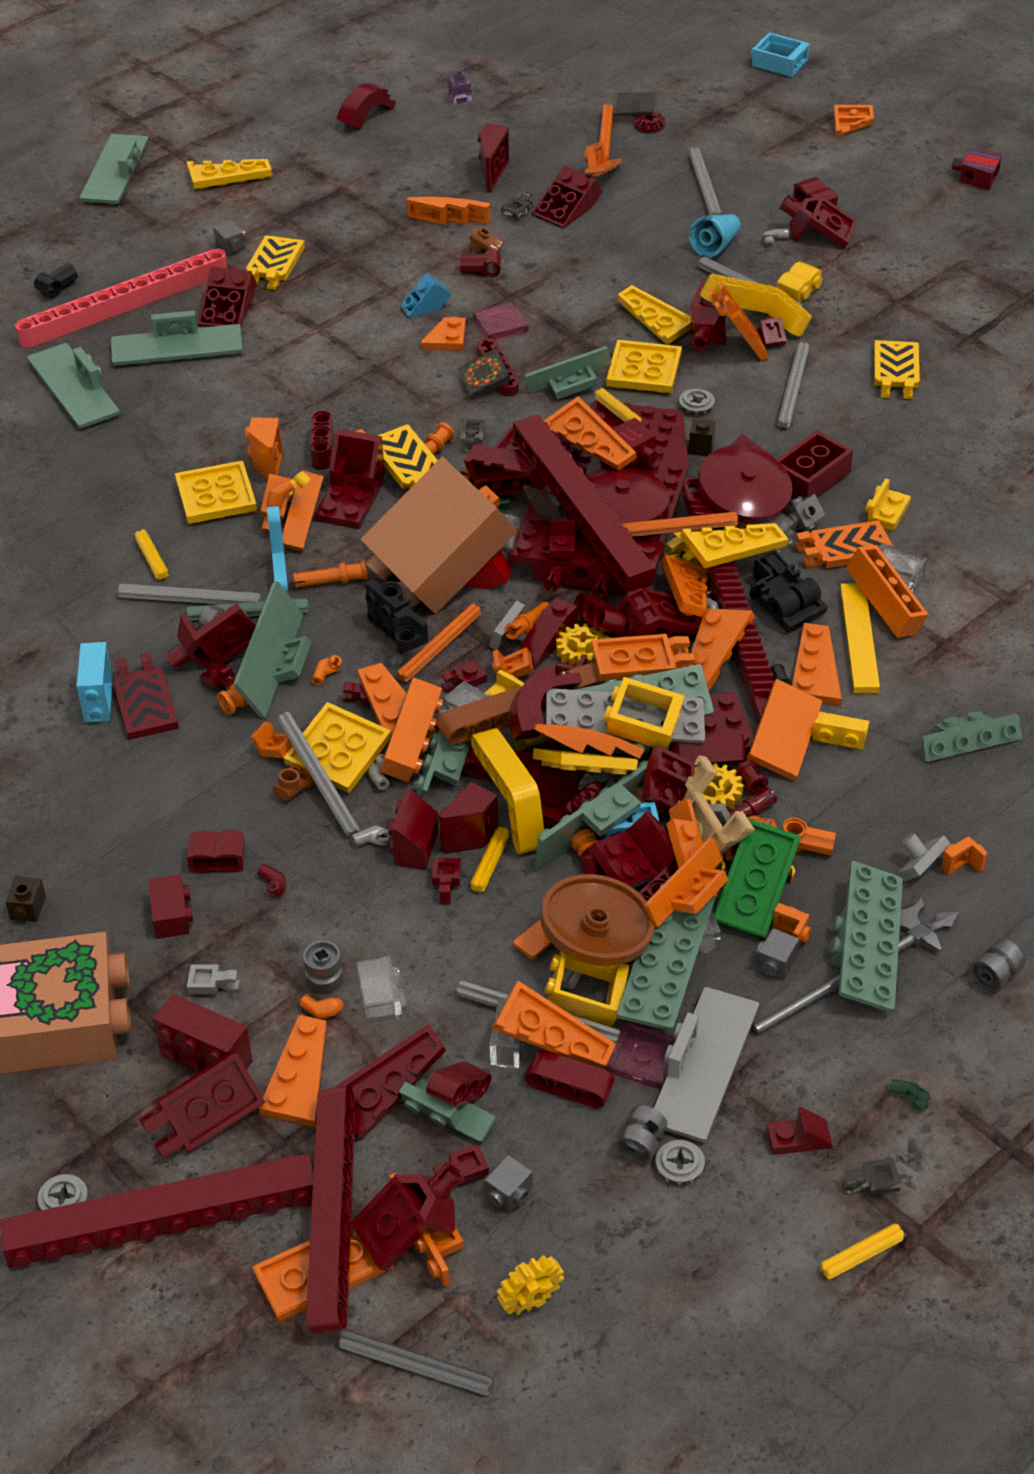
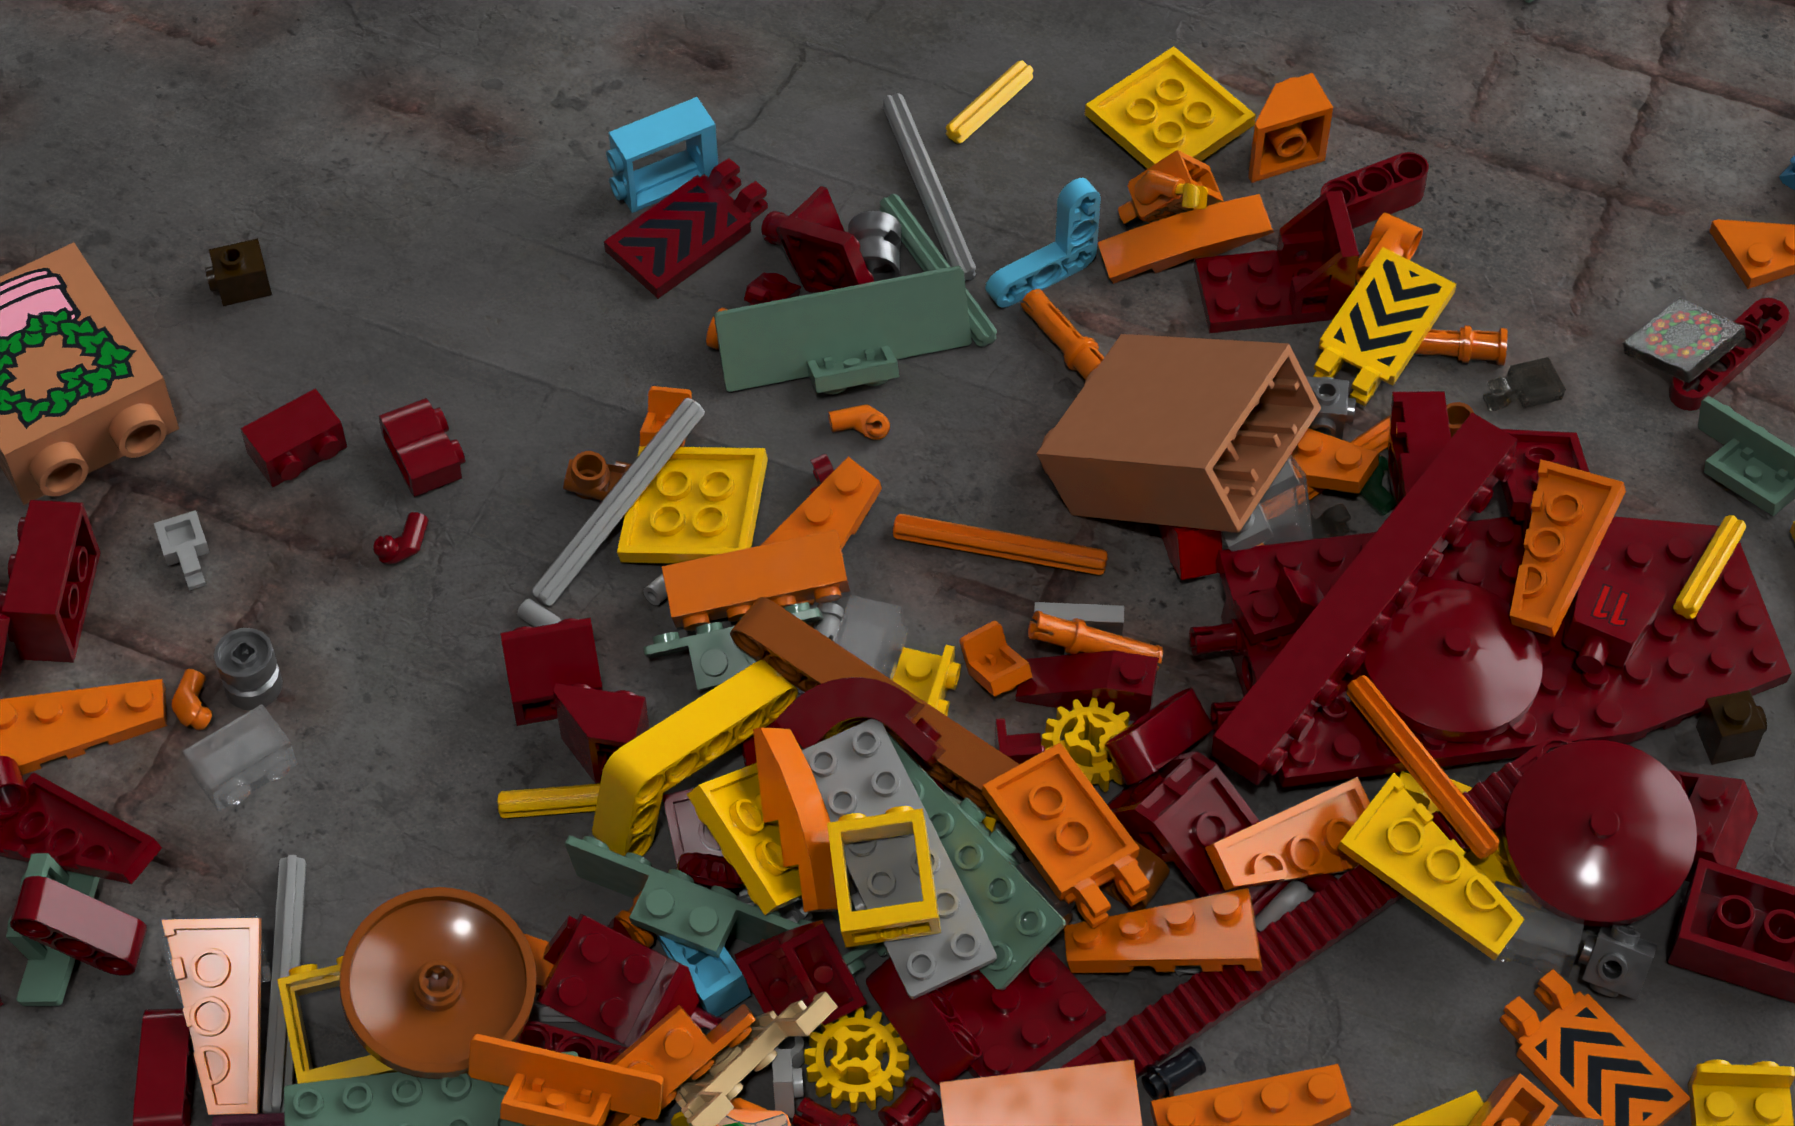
camera: 65 degrees right, 10 degrees up
(395, 615) = (1002, 456): black plate -> none
(446, 873) = (501, 751): dark red plate -> none
(467, 672) = (943, 613): dark red plate -> none
(545, 504) = (1335, 542): clear smoke piece -> none
(785, 592) = (1387, 1006): black plate -> none

